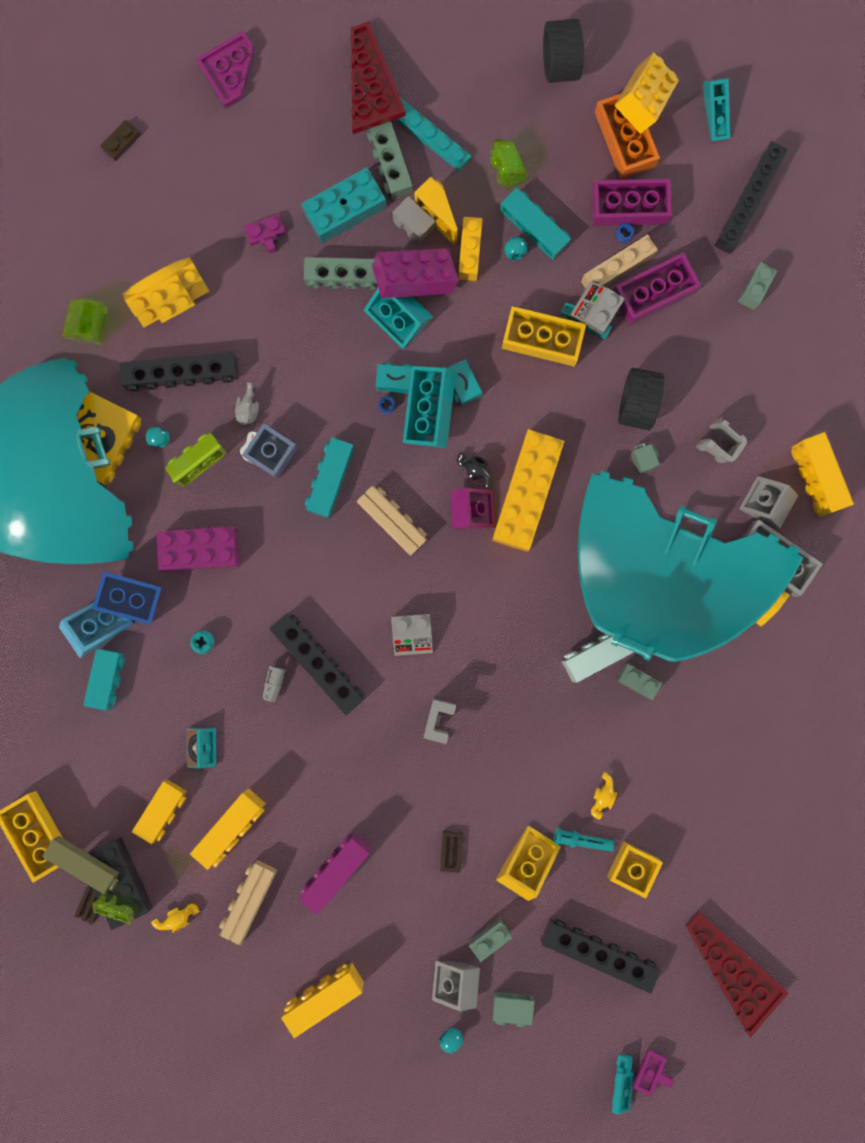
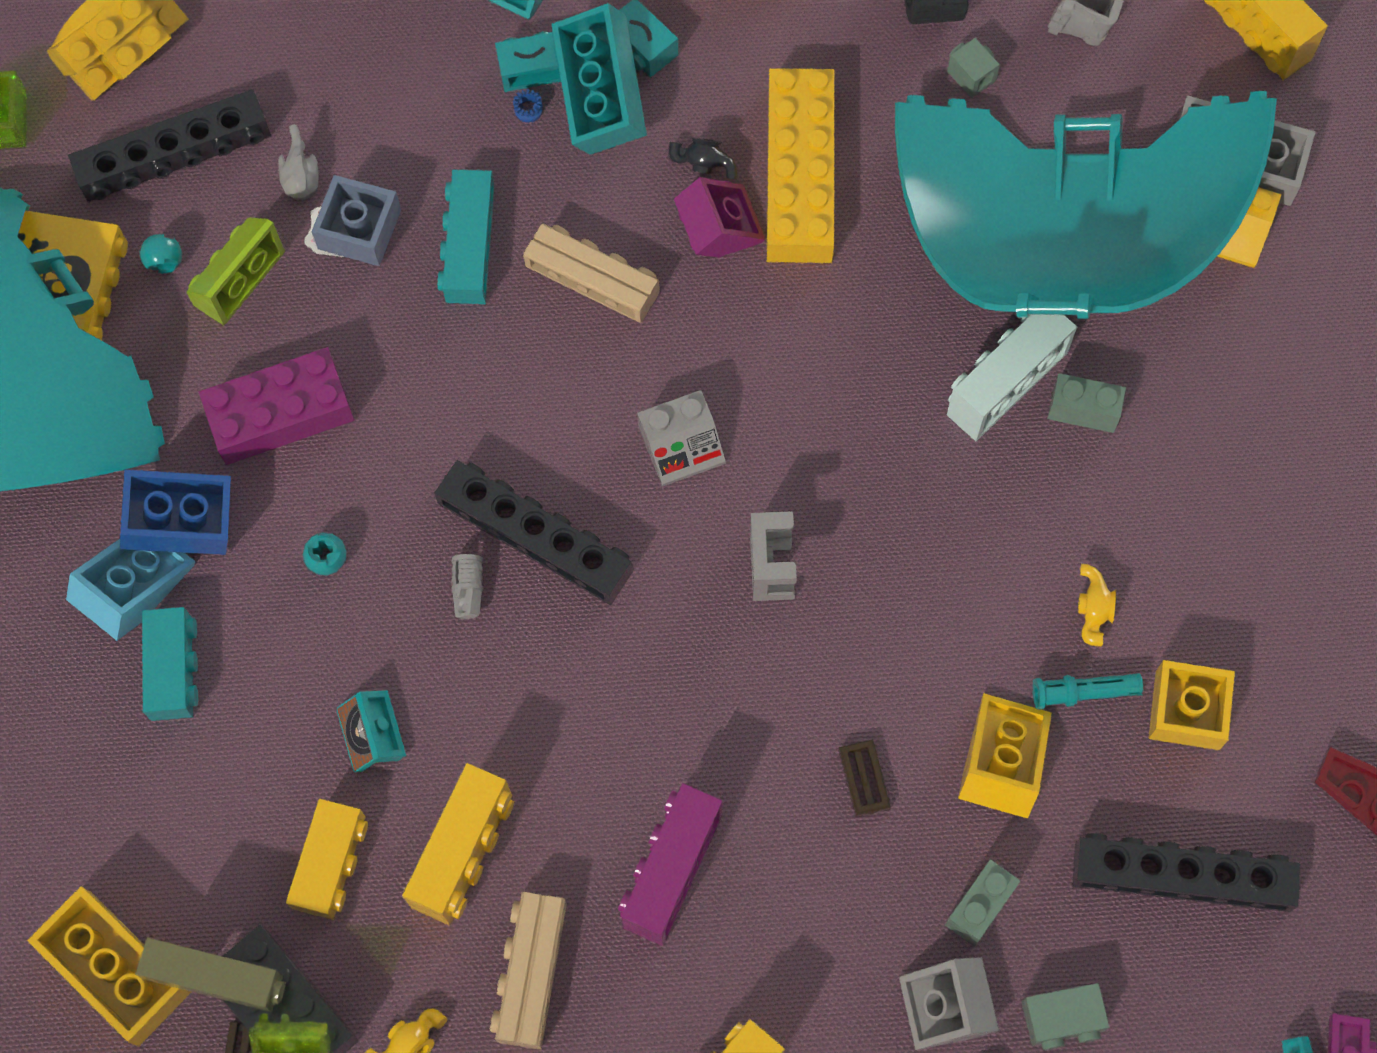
camera: 15 degrees left, 15 degrees down
(769, 501) = (1194, 68): light grey slope -> none

